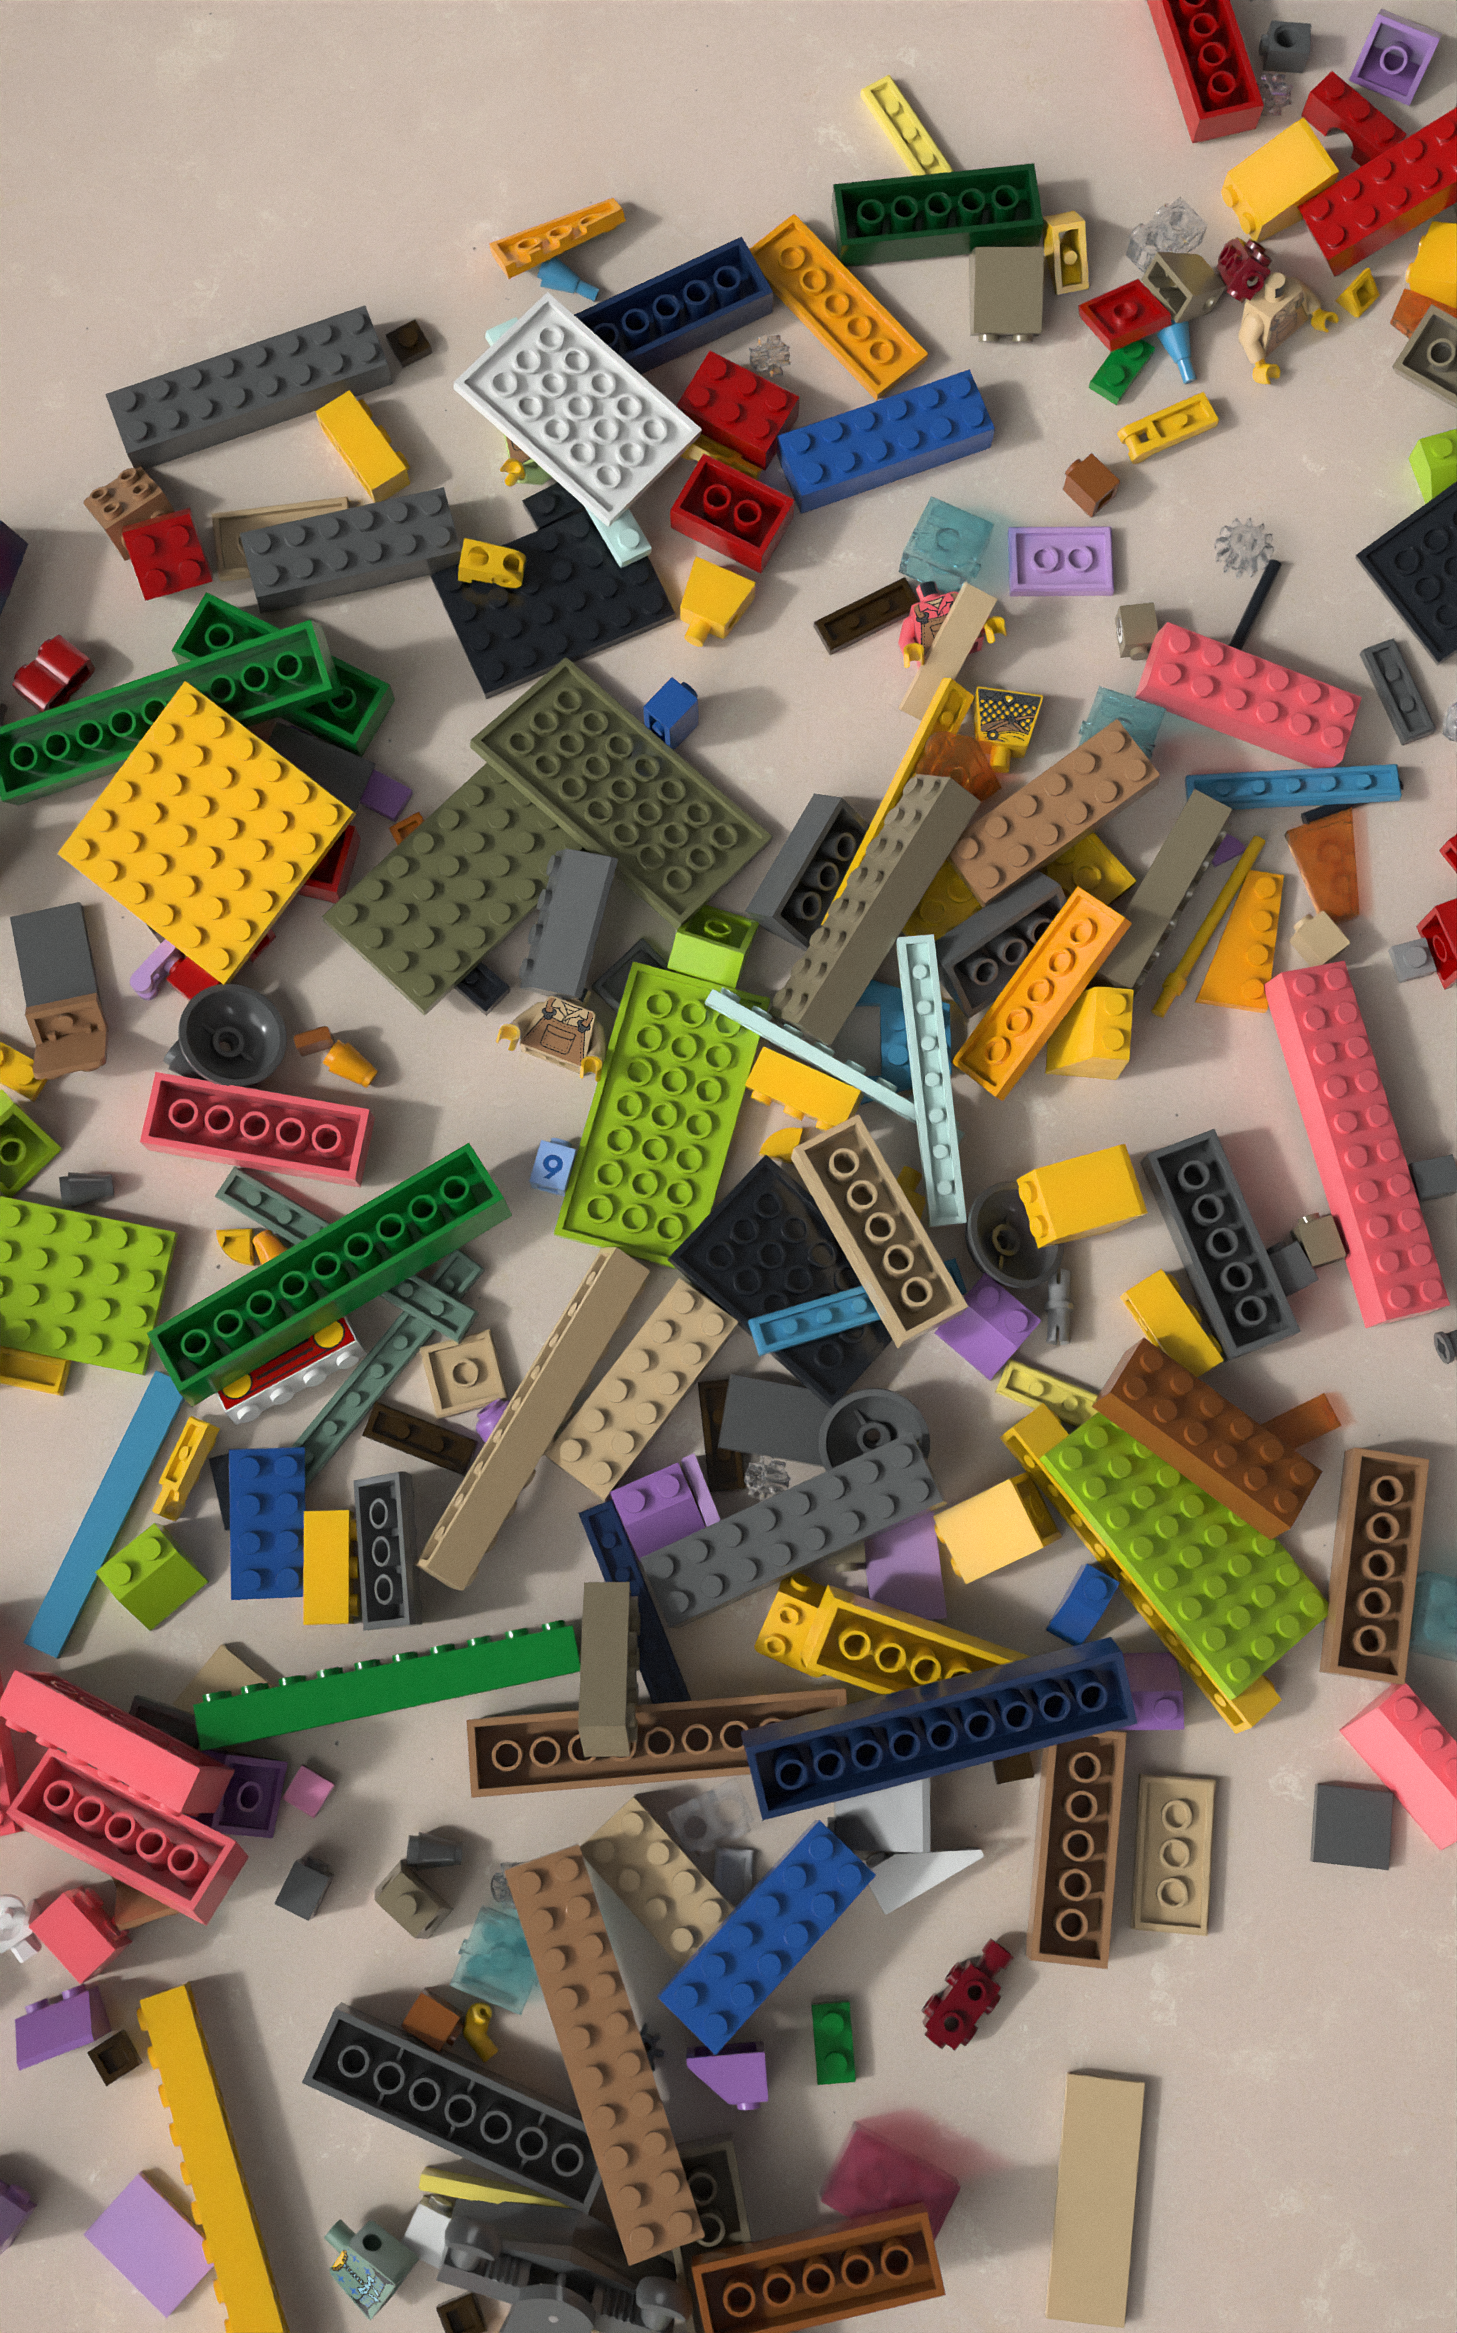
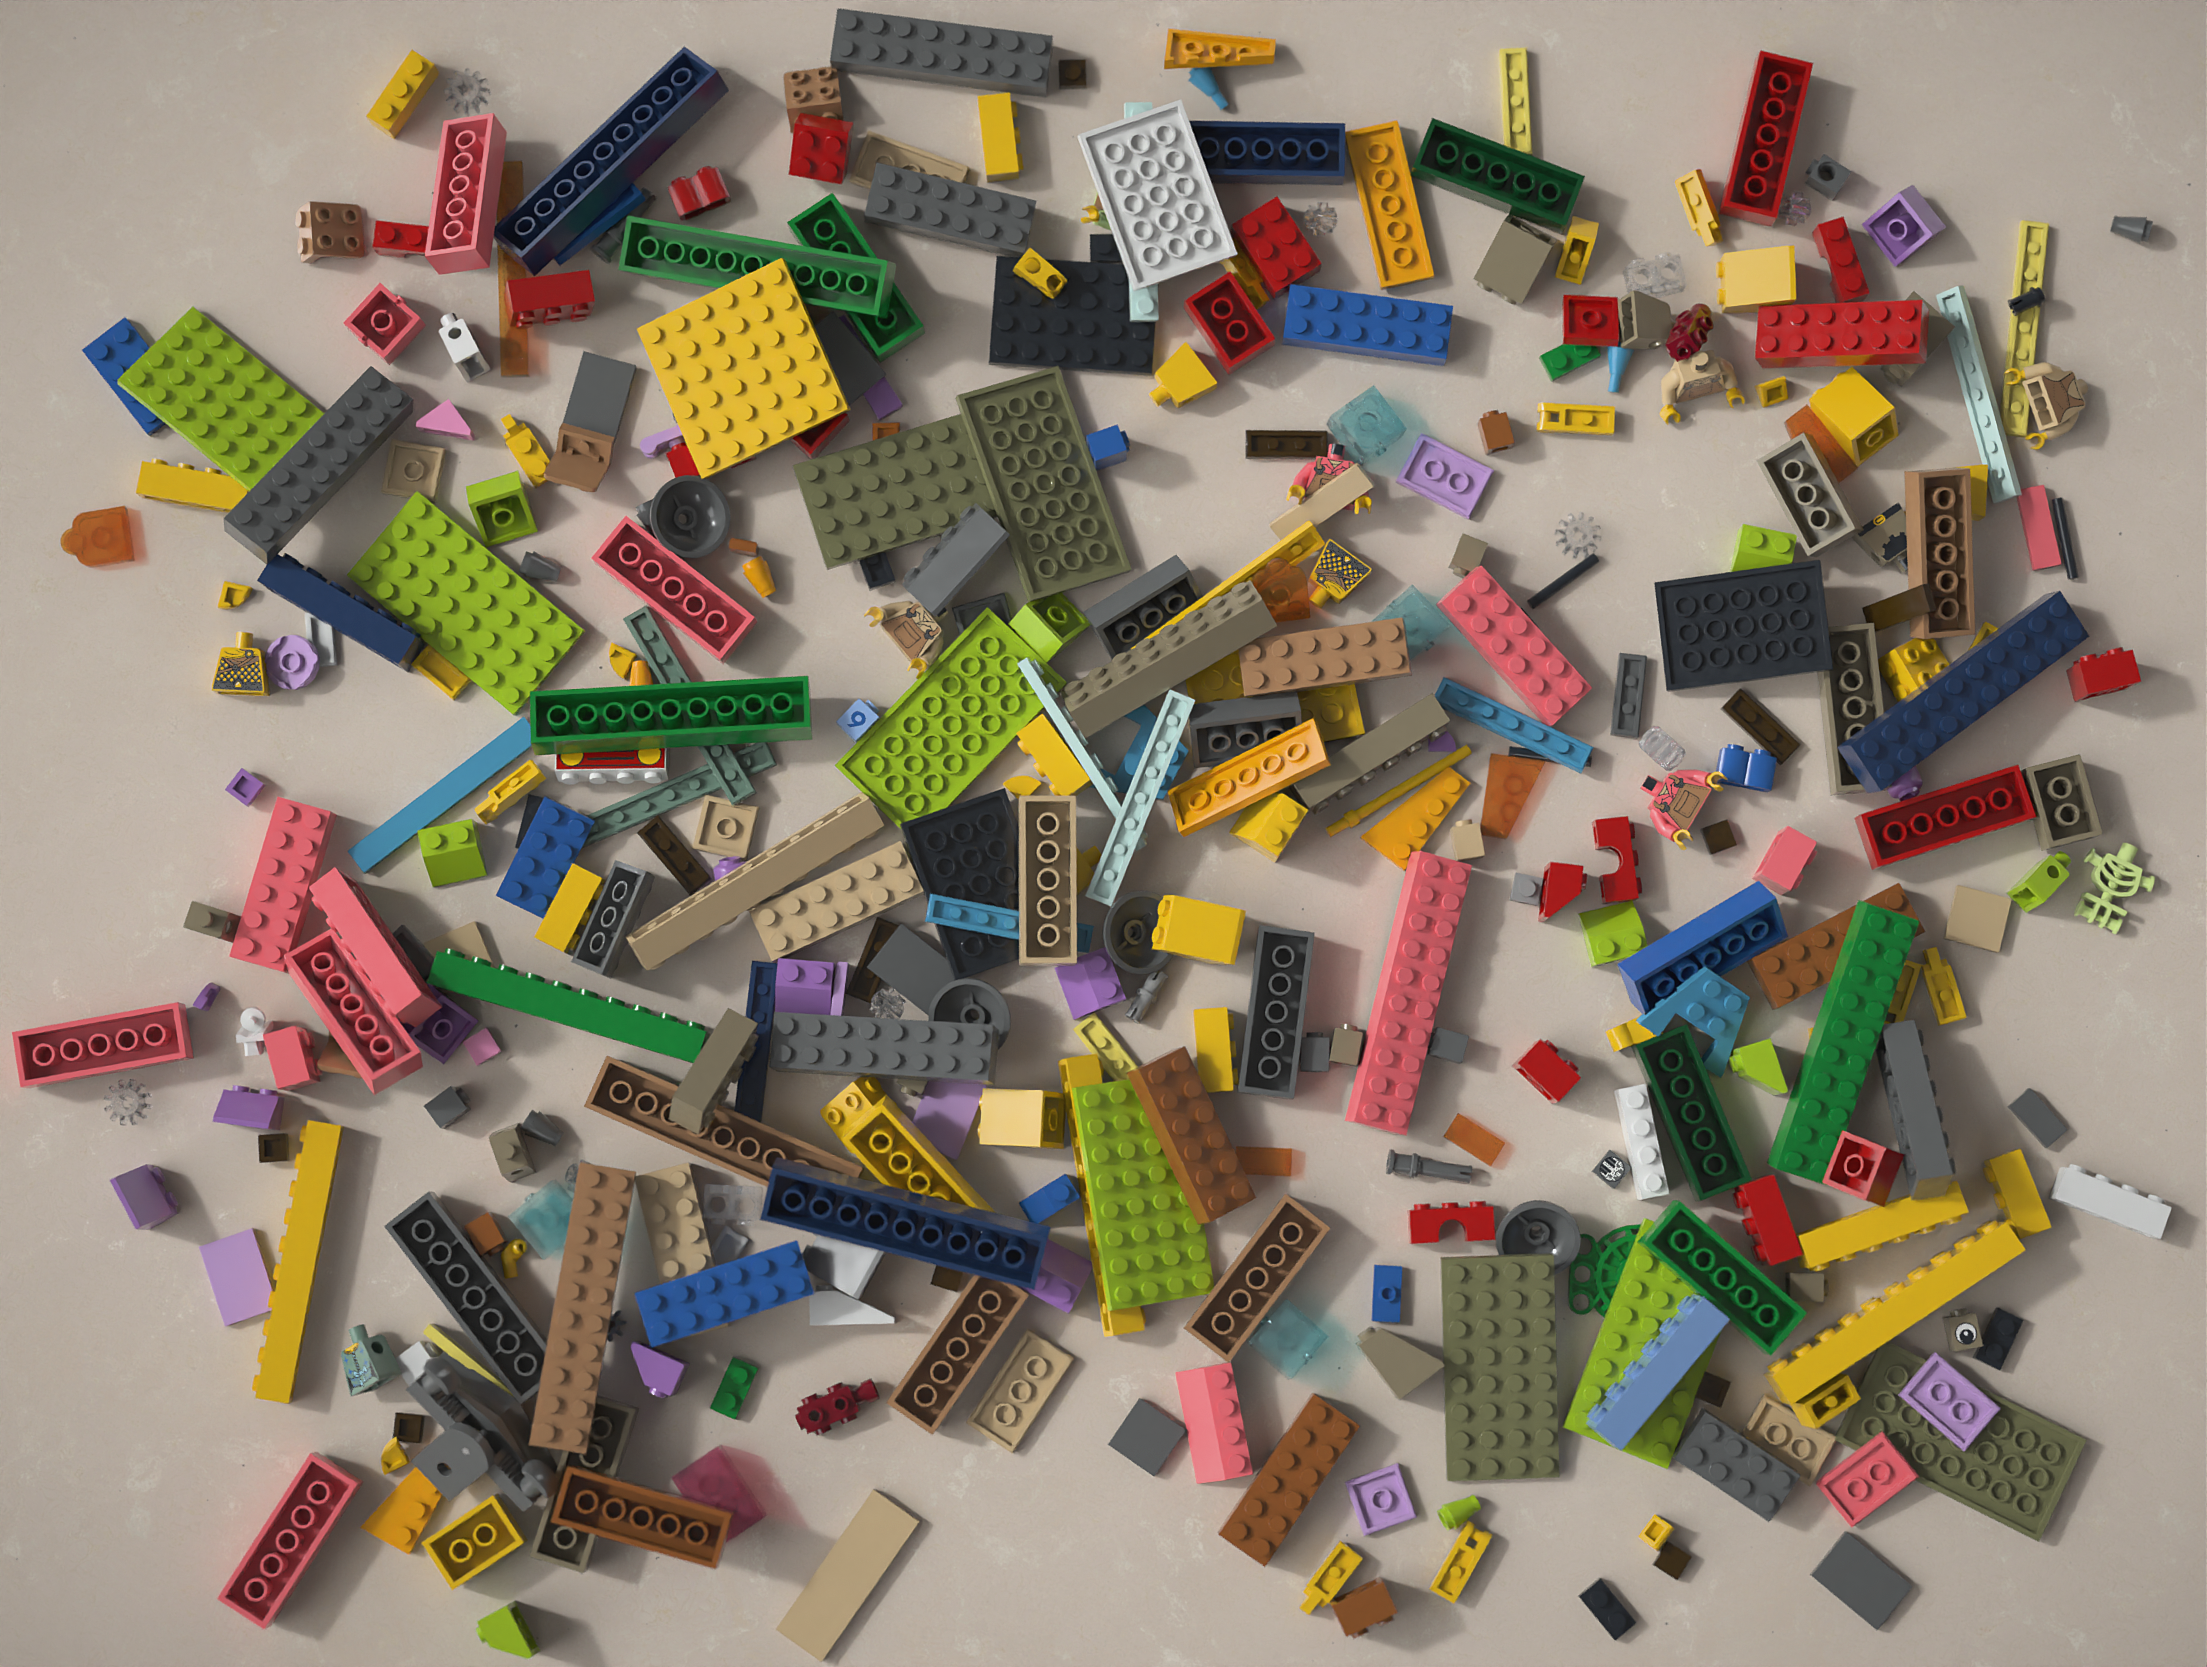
camera: 30 degrees right, 5 degrees up
(1169, 143) = (1699, 207): none -> yellow hinge

